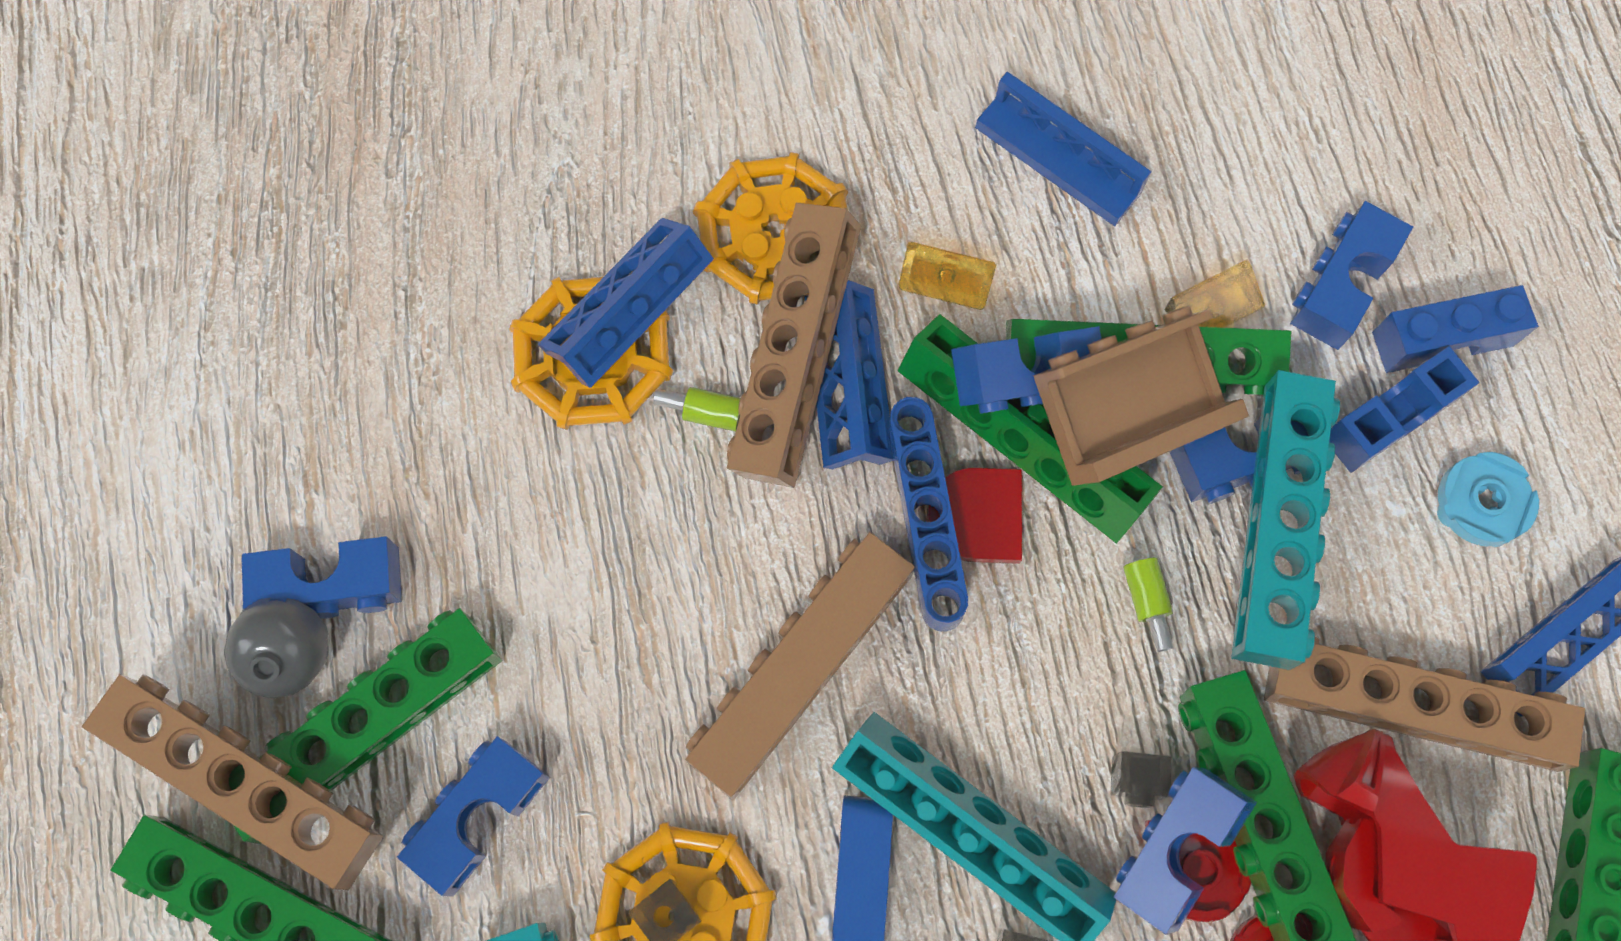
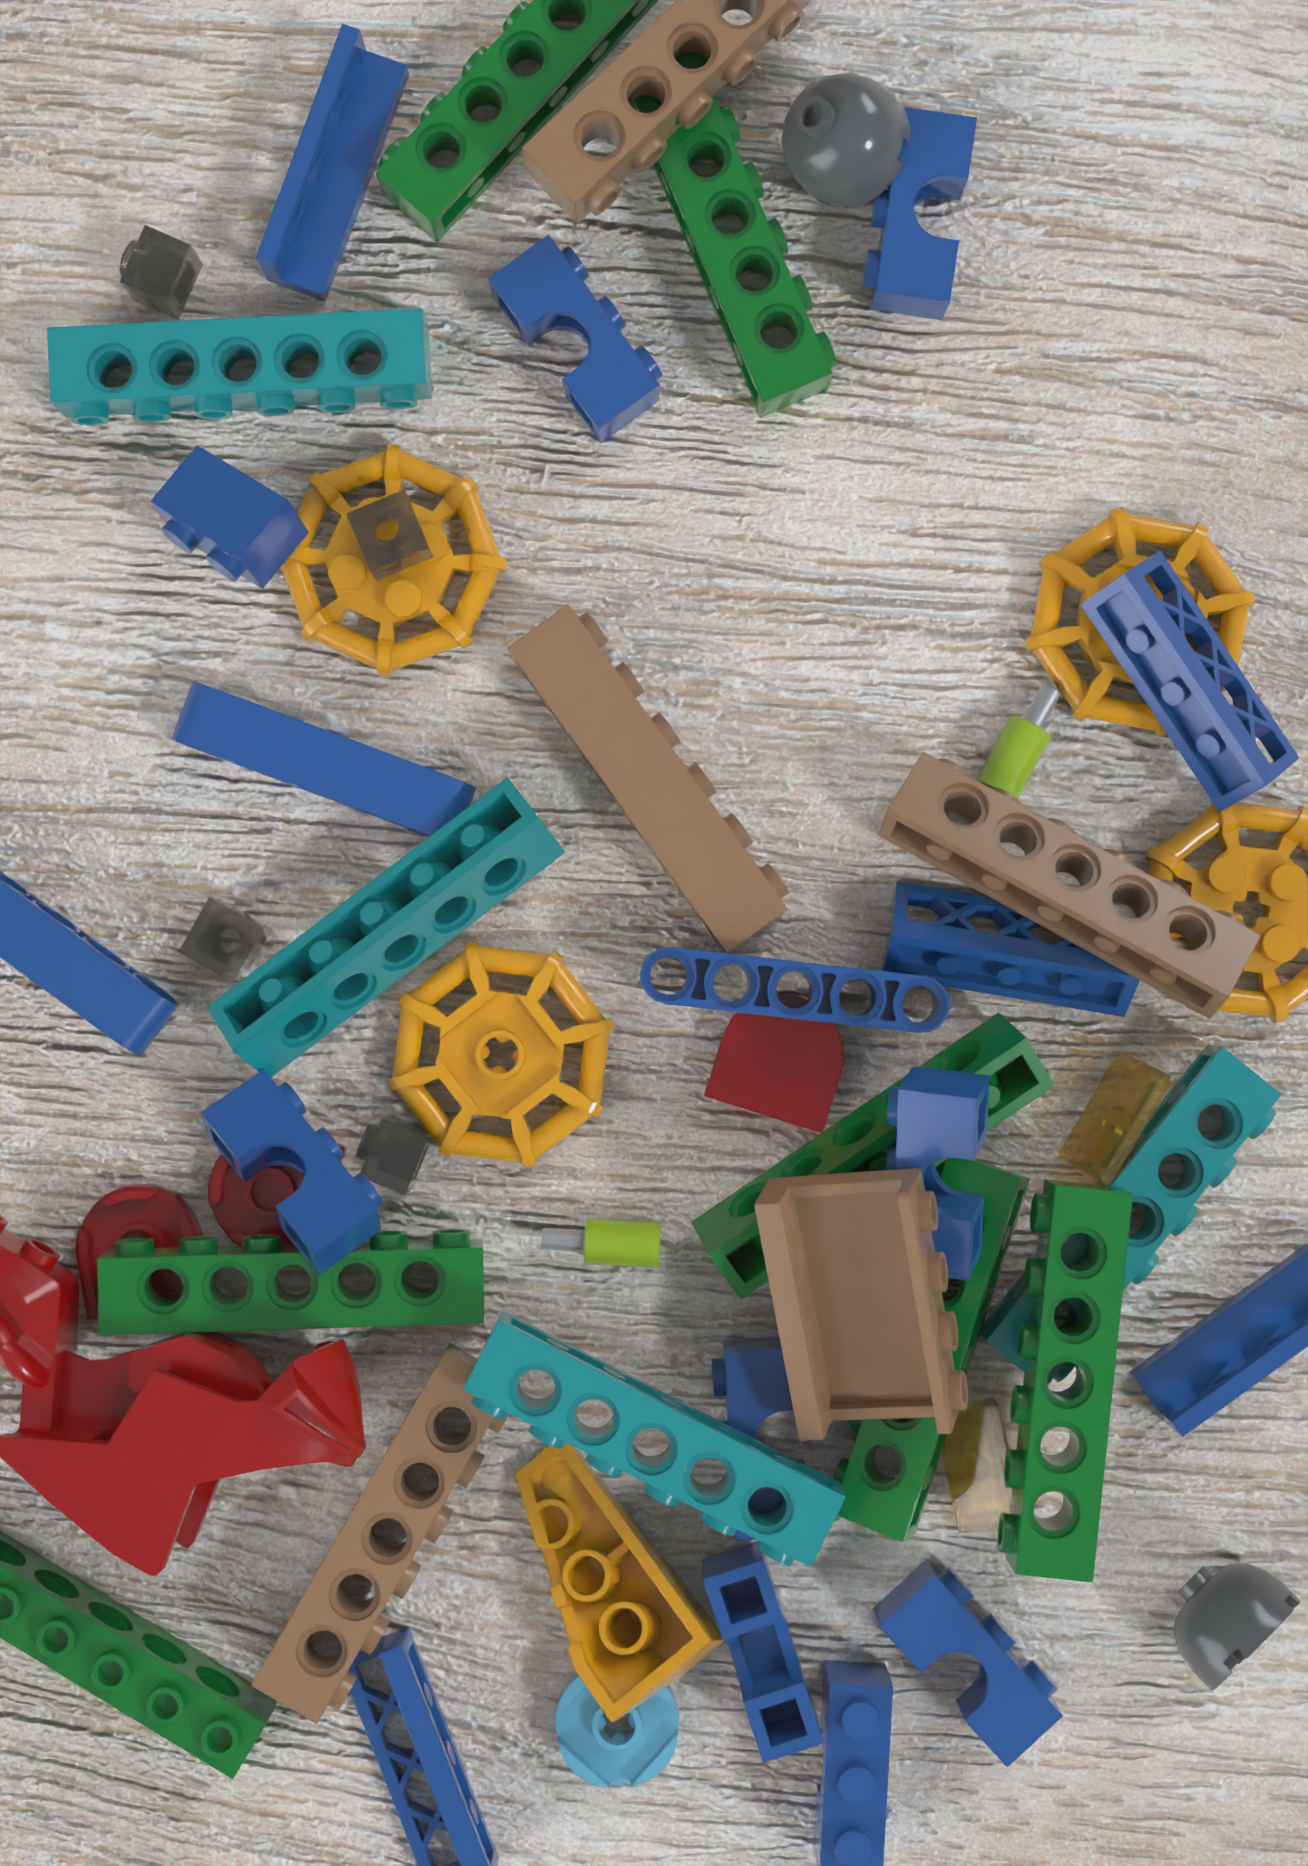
camera: 105 degrees right, 15 degrees up
(1021, 270) = (1246, 1112): none -> teal brick
(1042, 748) = (506, 1018): none -> light orange plate
(1250, 222) = (1066, 1542): none -> green brick
(1259, 115) = (1228, 1618): none -> dark grey cylinder
(1400, 522) = (619, 1598): none -> light orange wedge

